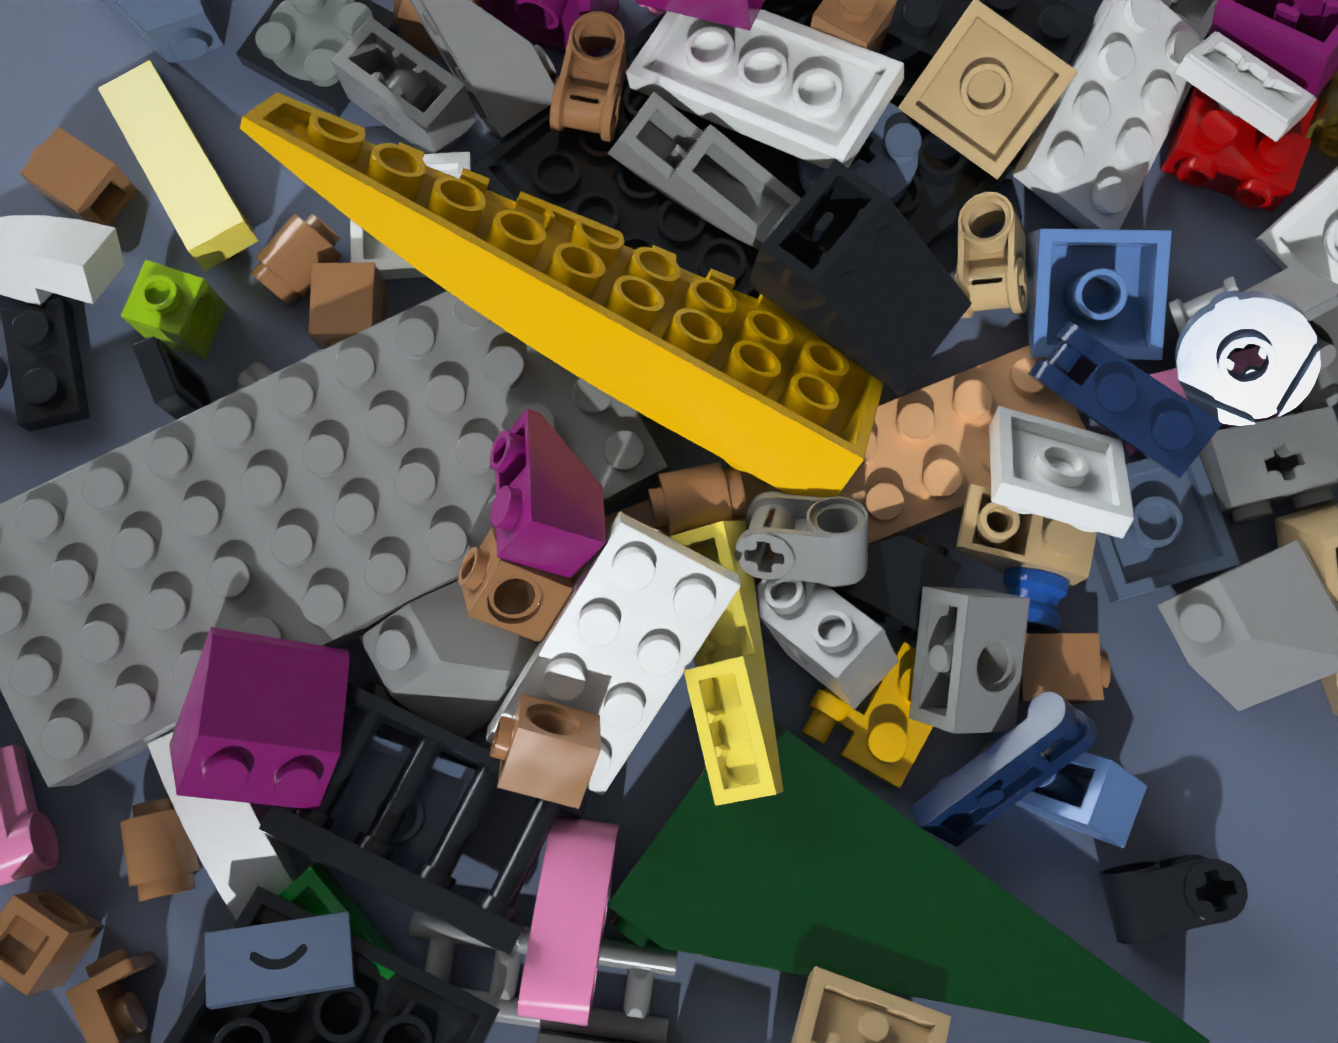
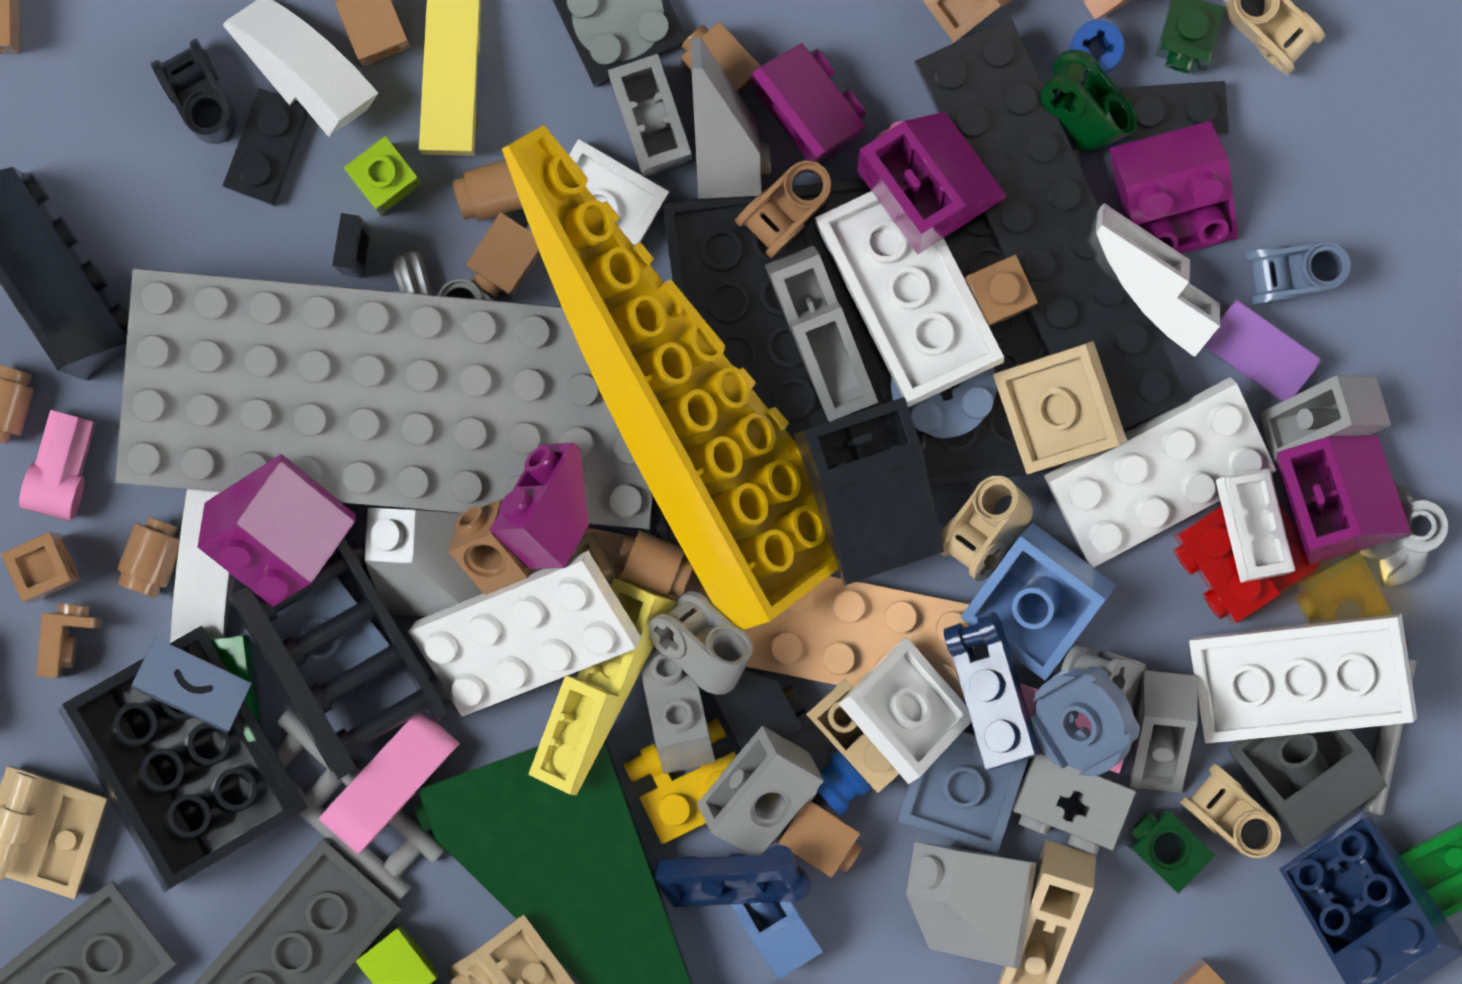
camera: 35 degrees right, 10 degrees up
(547, 750) = (443, 668): medium nougat brick -> none

